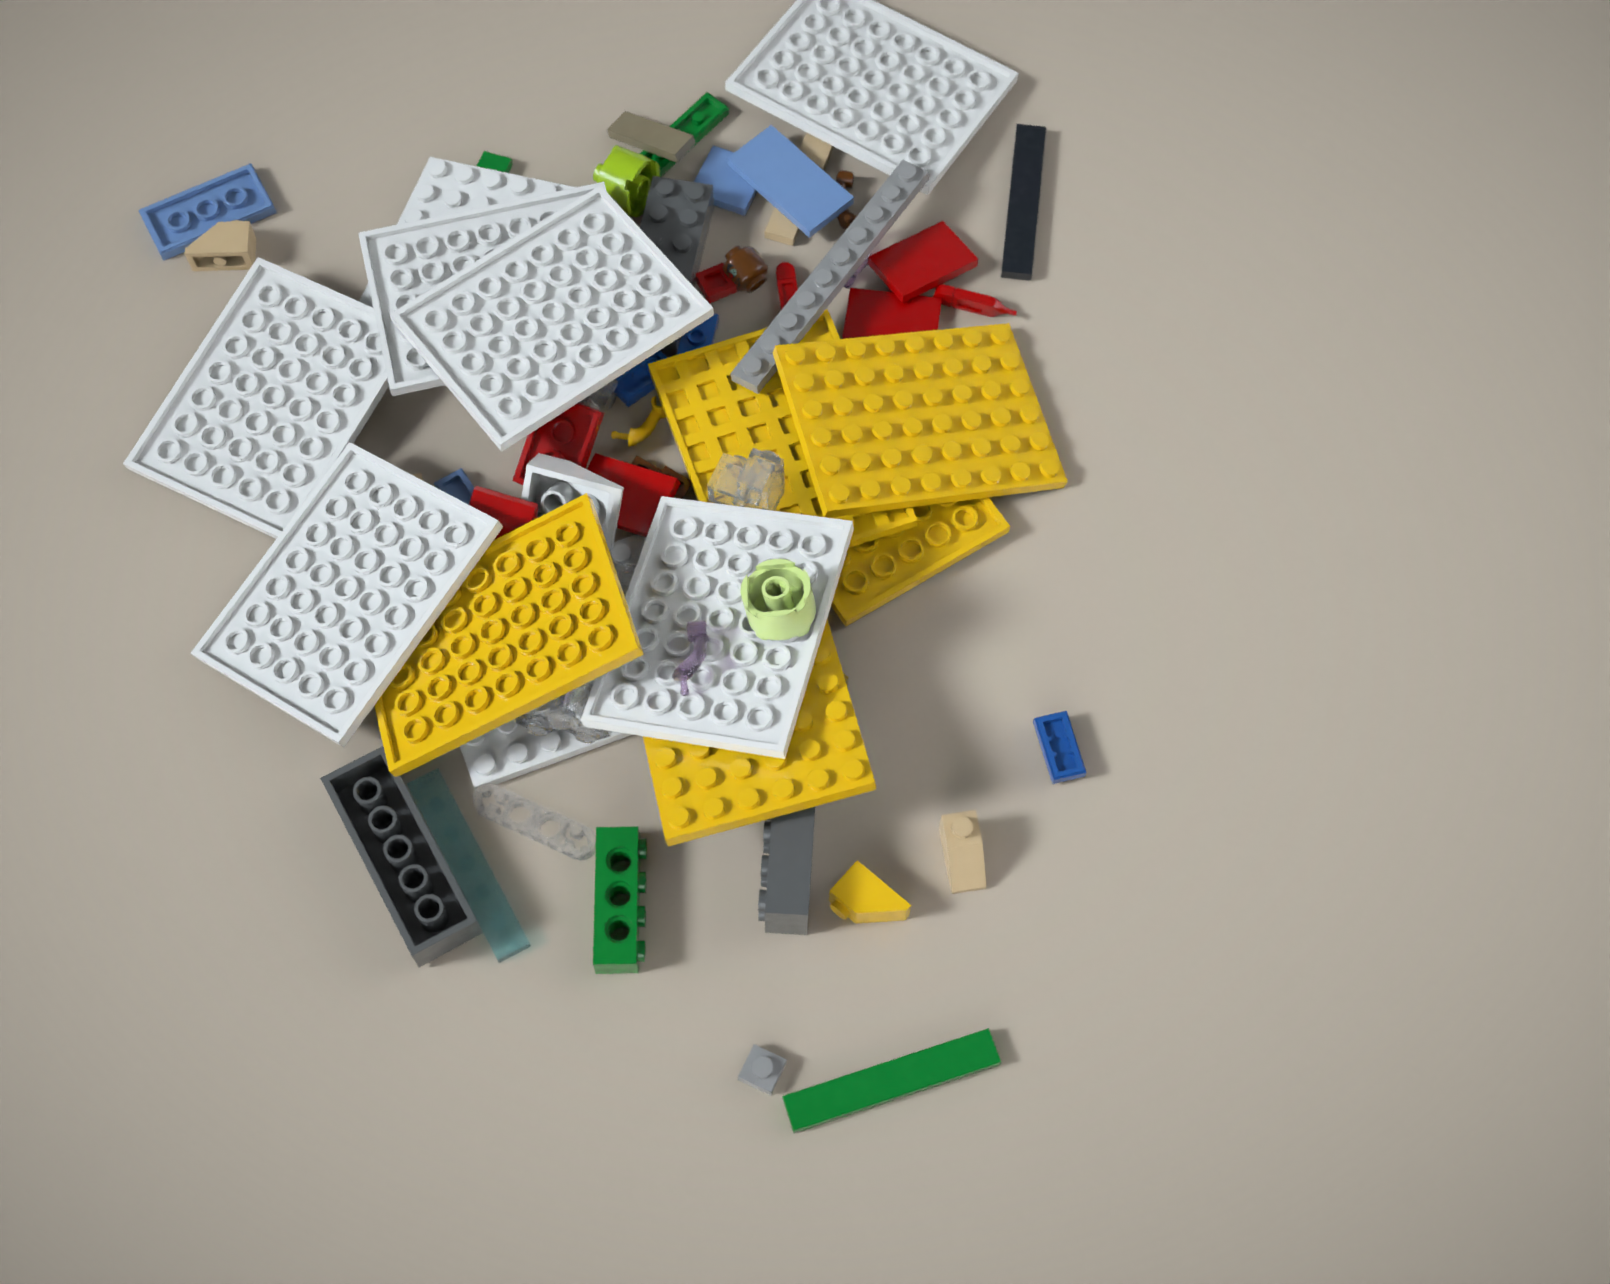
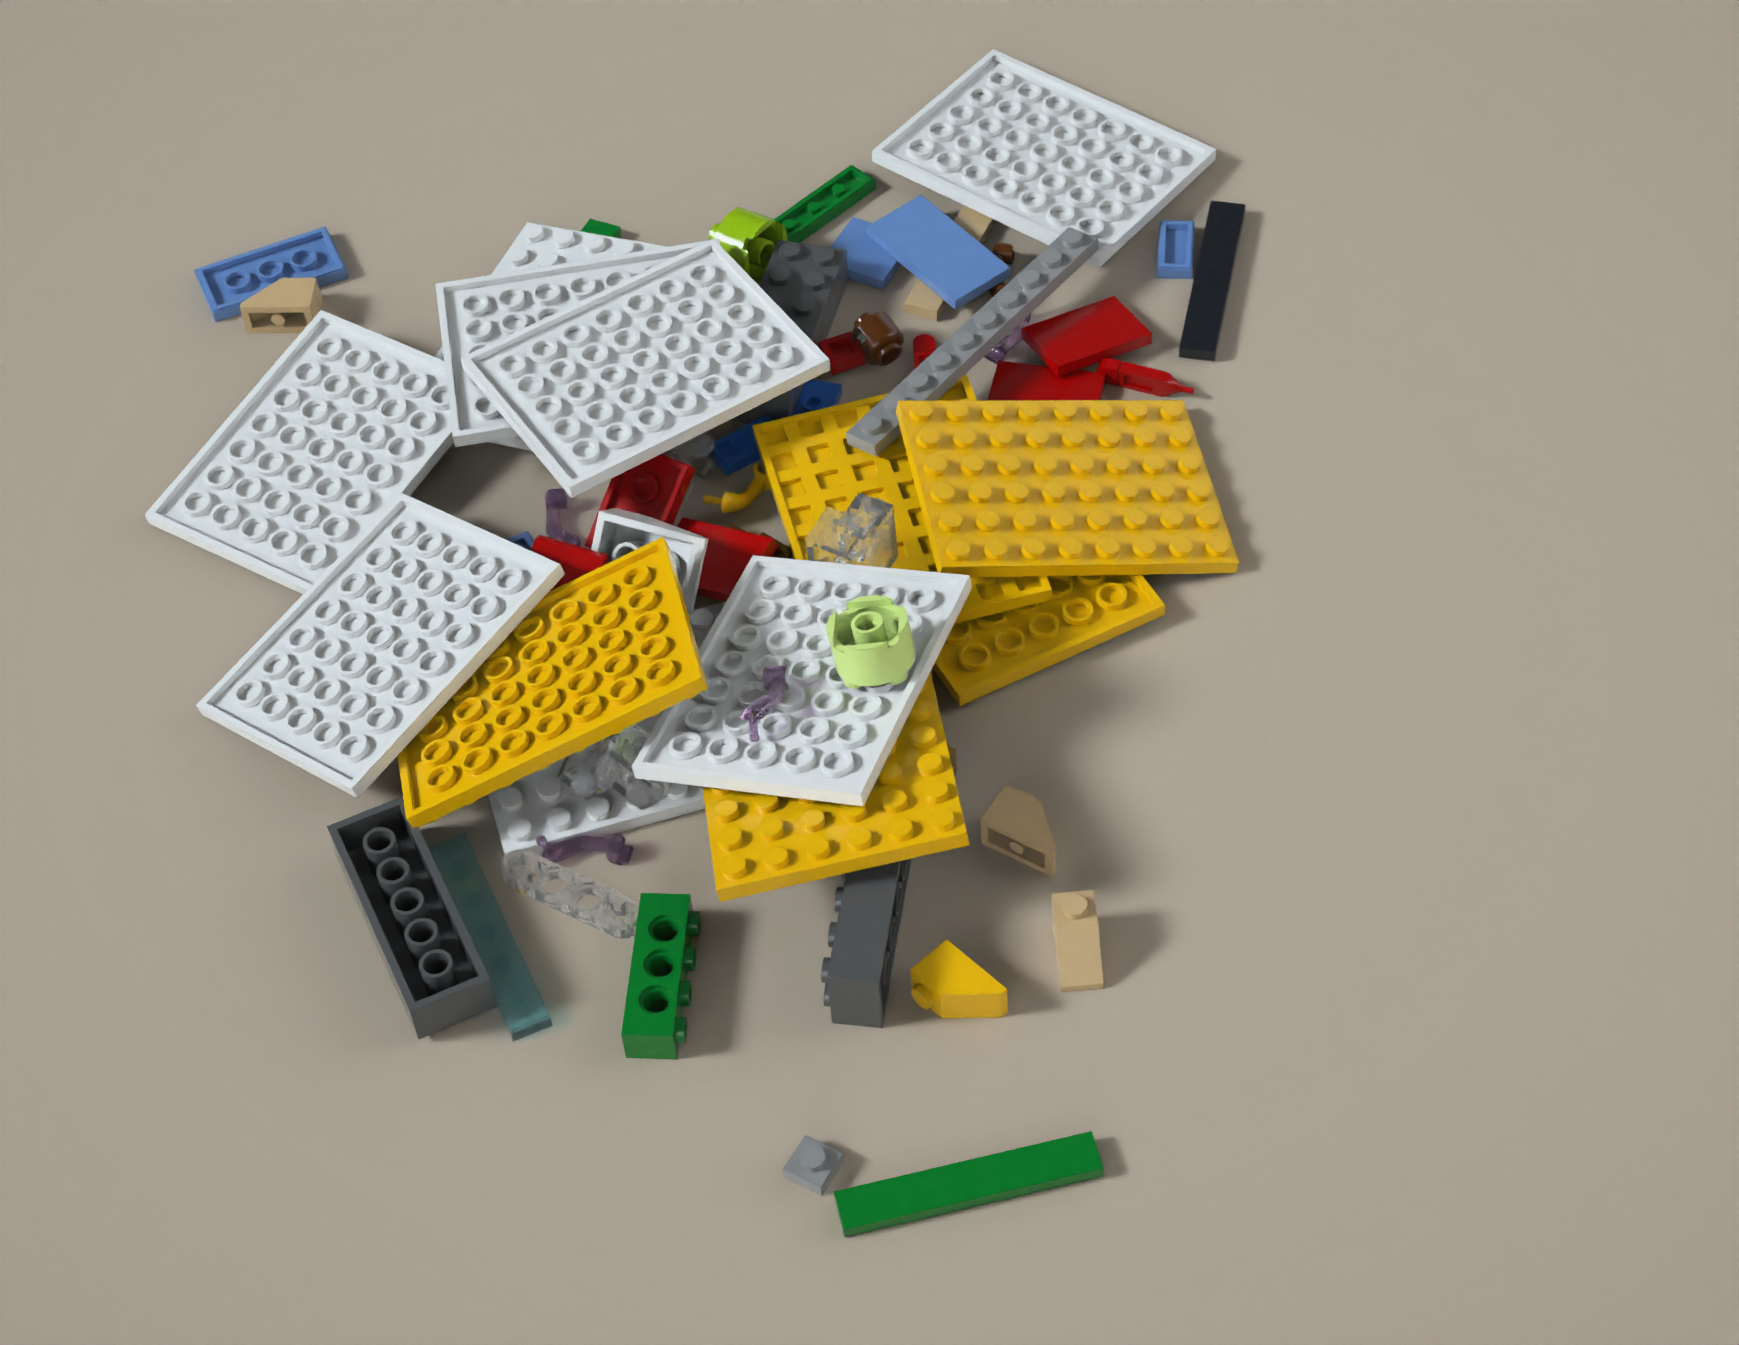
camera: 10 degrees right, 15 degrees down
(495, 476) = (555, 501): none -> clear purple piece
(569, 775) = (616, 850): none -> clear purple piece
(651, 136) = (783, 205): dark tan tile -> none
(908, 746) = (1020, 830): none -> tan slope
(990, 171) = (1175, 249): none -> medium blue tile
(1059, 747) = (1205, 838): blue plate -> none

